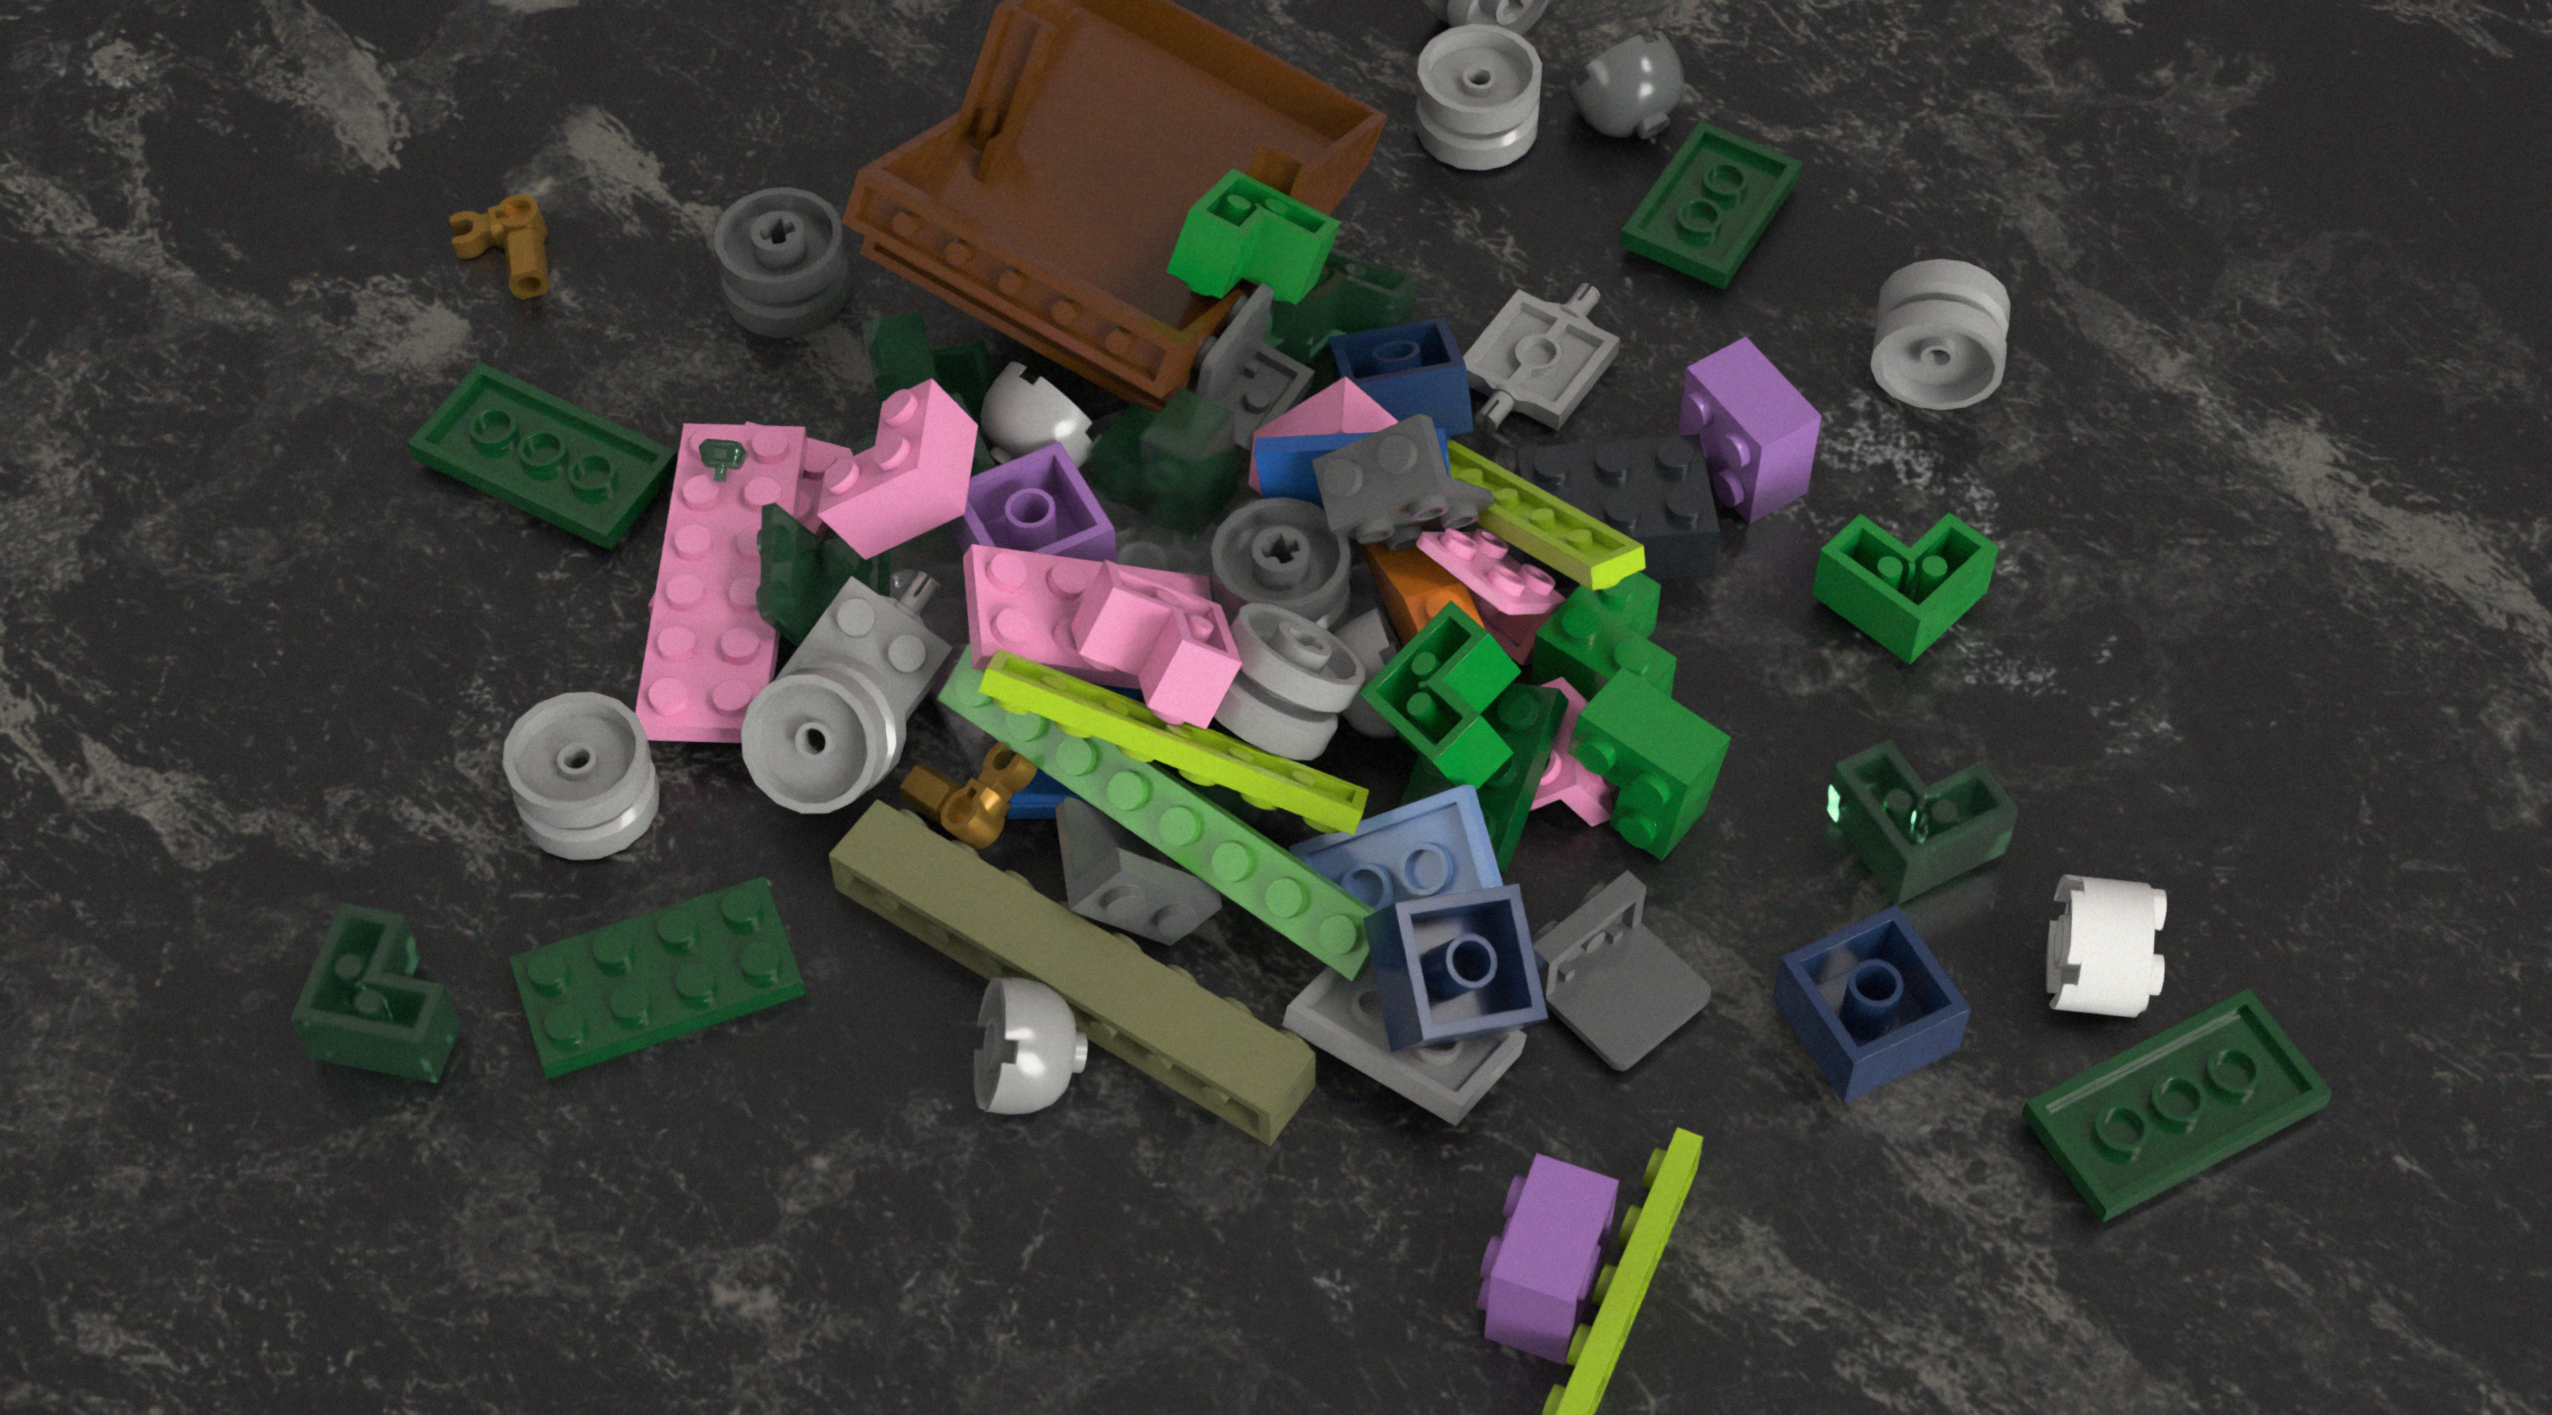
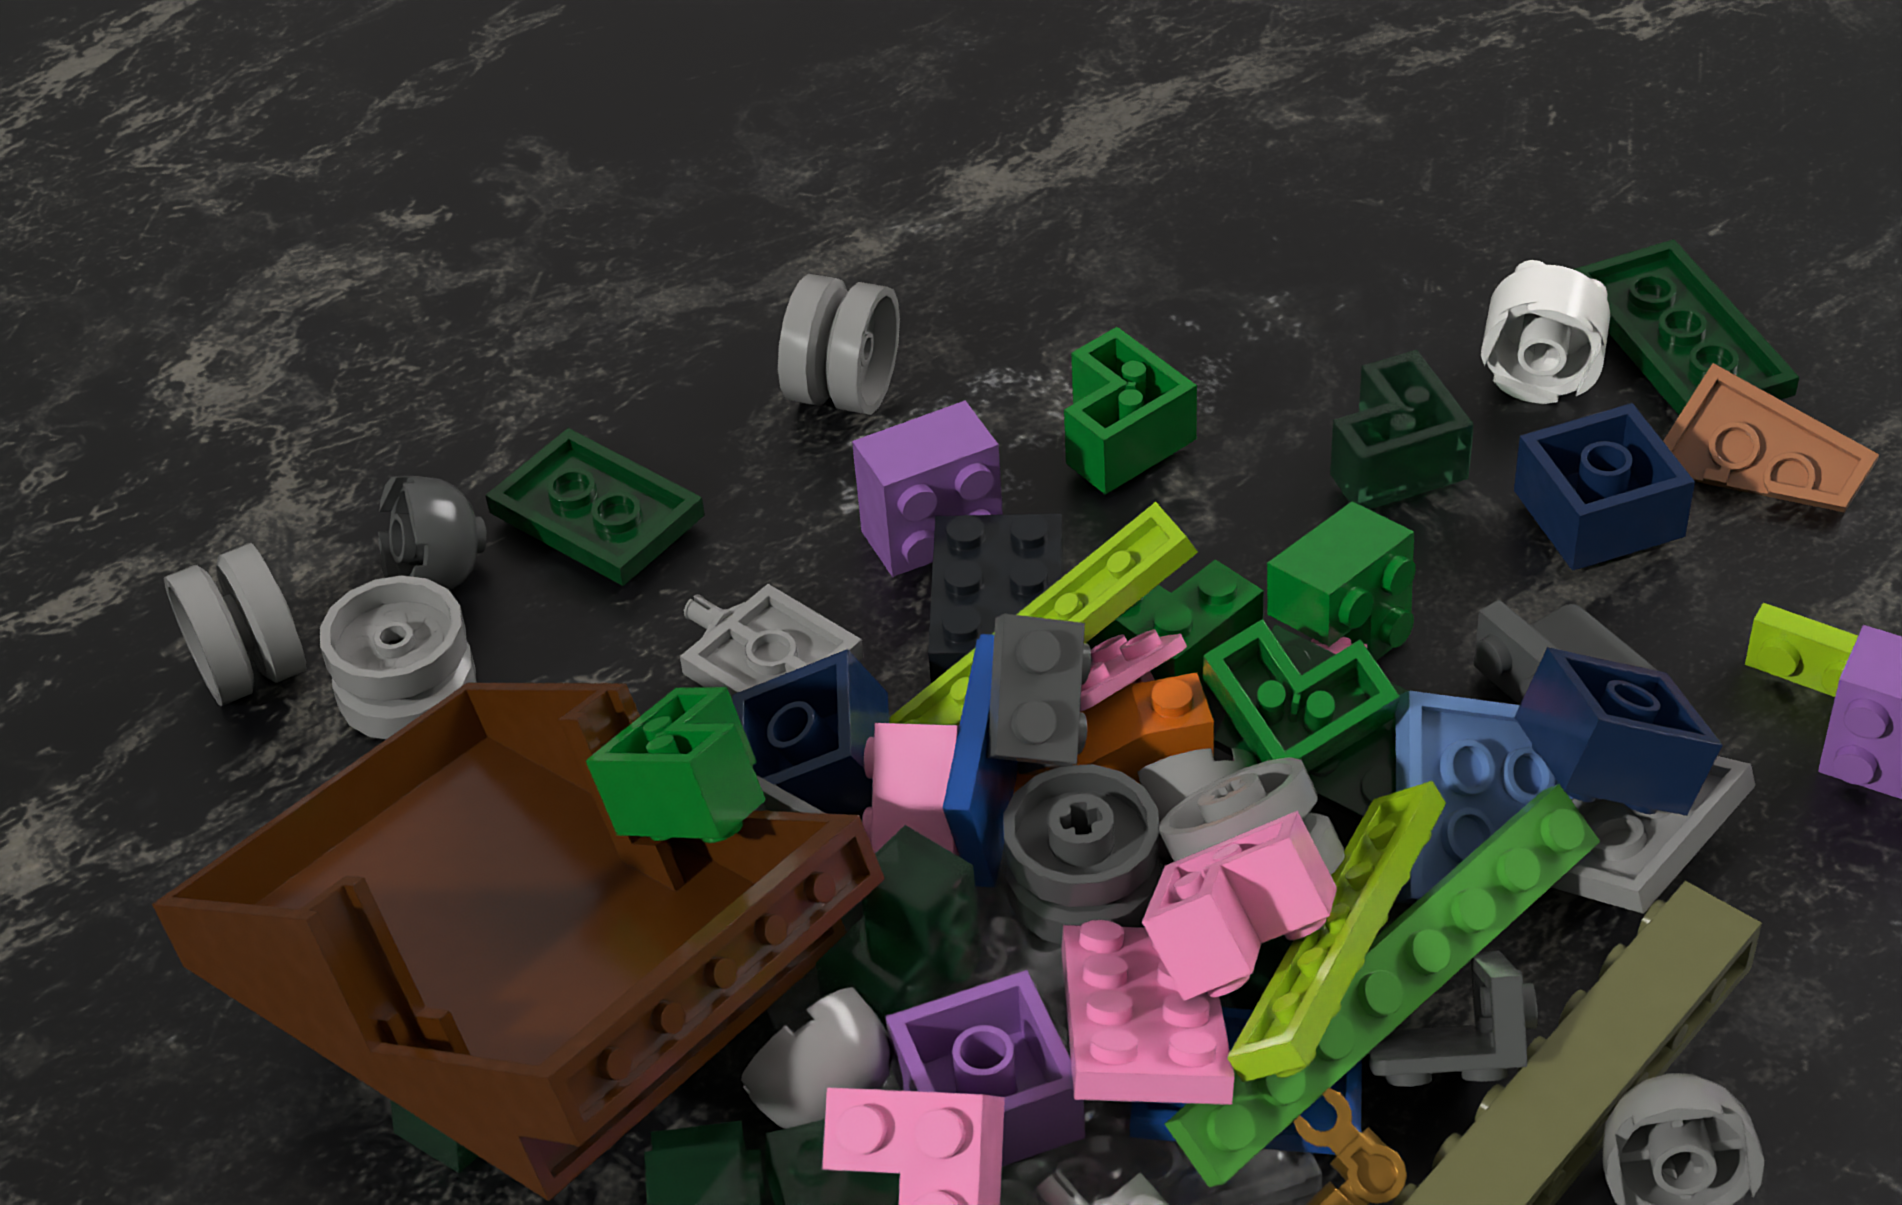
camera: 80 degrees left, 10 degrees down
(1982, 1164) = (1764, 447): none -> nougat wing

